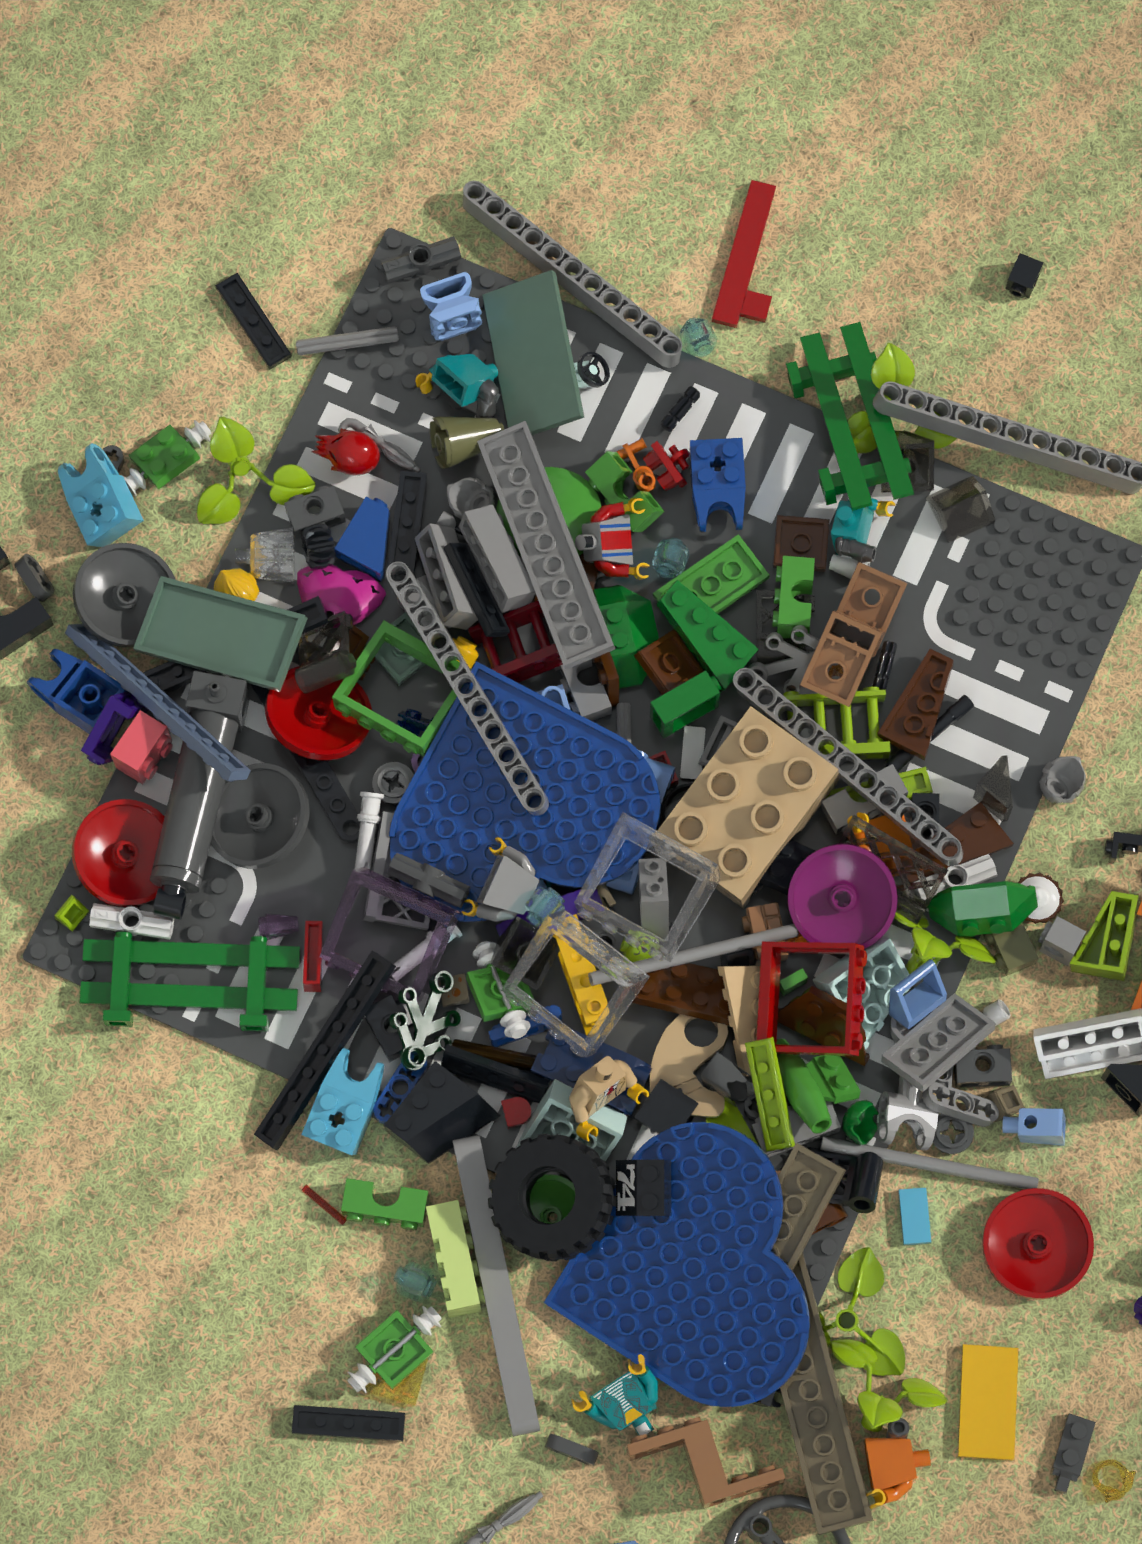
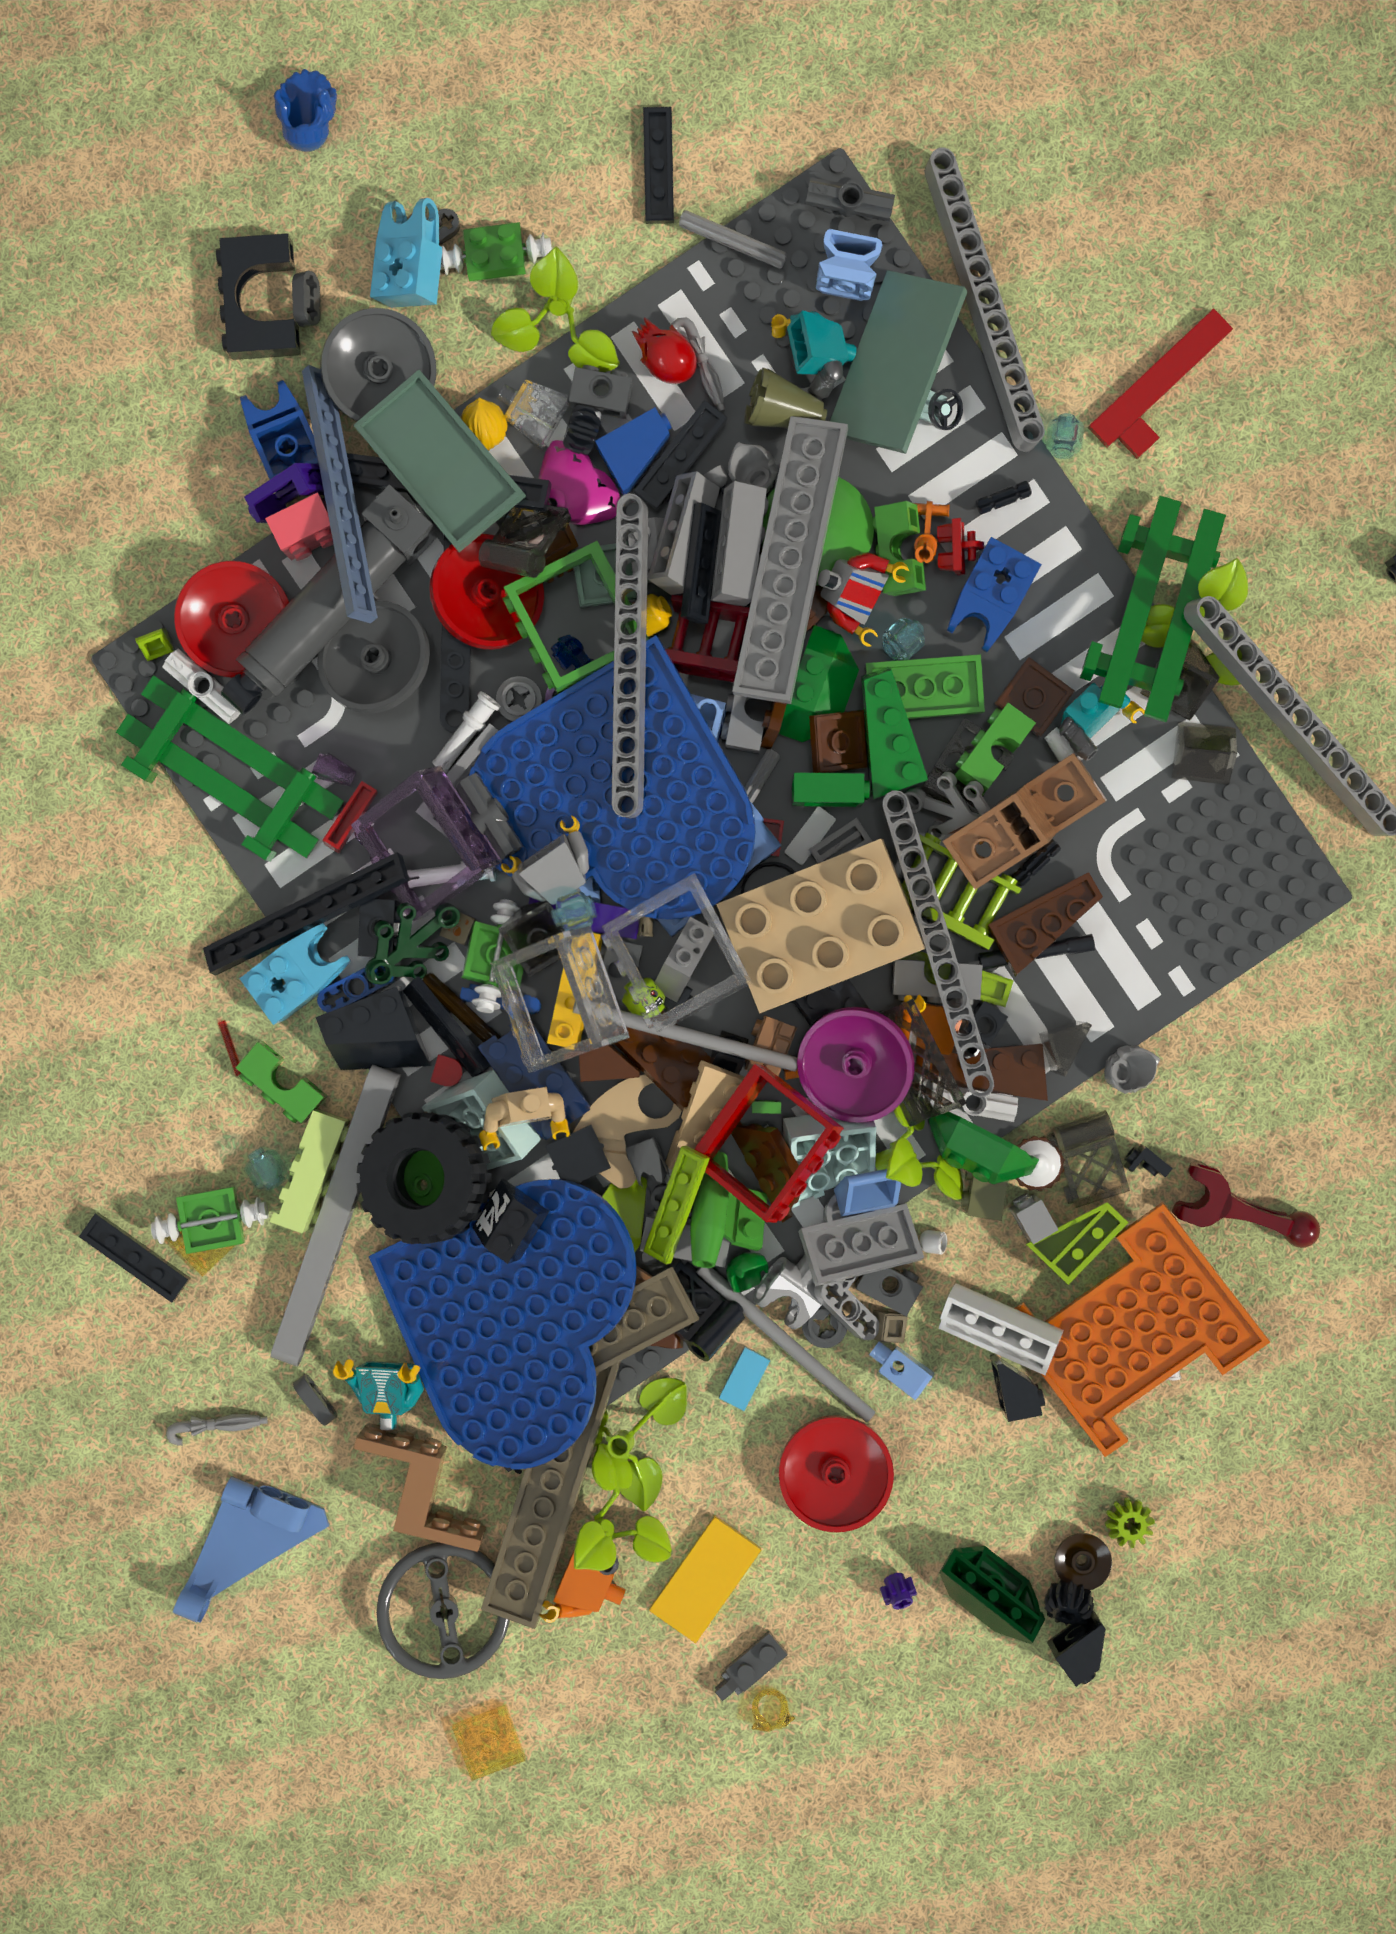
camera: 30 degrees right, 15 degrees up
(643, 1022) = (606, 1064): none -> reddish brown slope
(1058, 858) = (1082, 1136): none -> clear smoke piece

